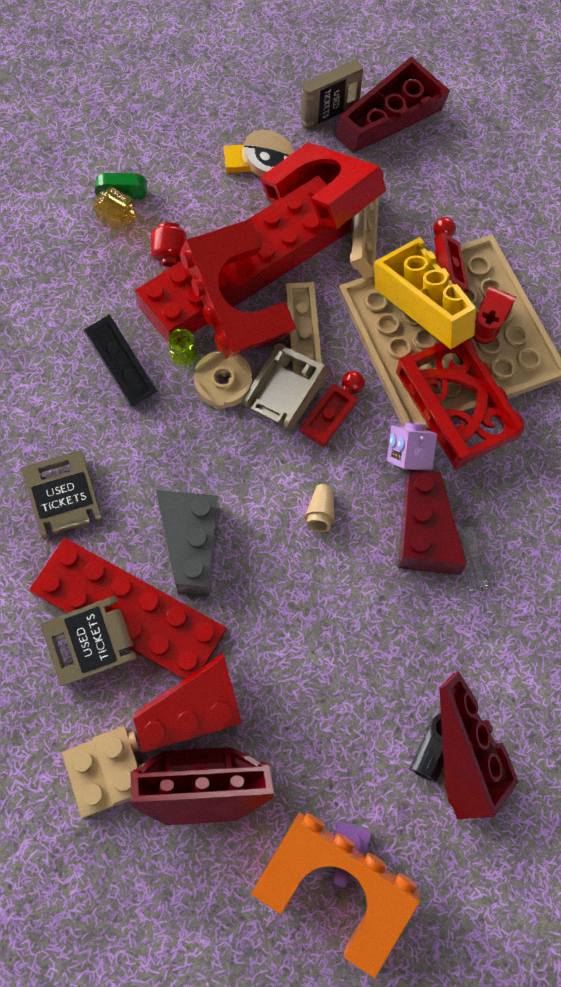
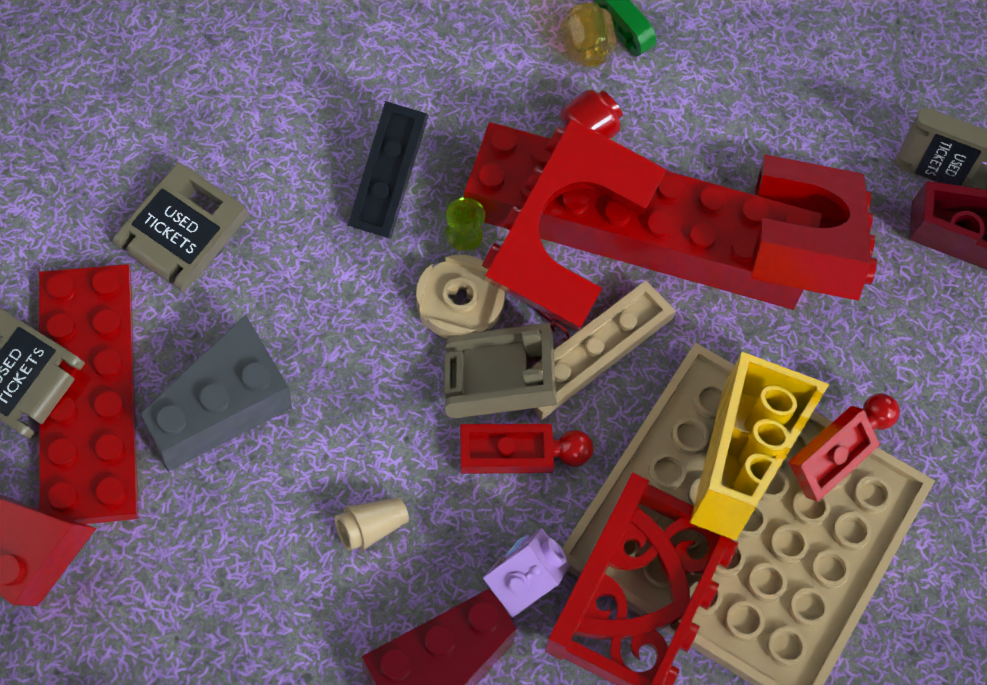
camera: 50 degrees right, 5 degrees down
(234, 161) = (779, 118): yellow tile -> none
(265, 150) = (814, 136): tile -> none
(364, 240) = (795, 323): tan plate -> none
(492, 314) = (811, 550): red piece -> none

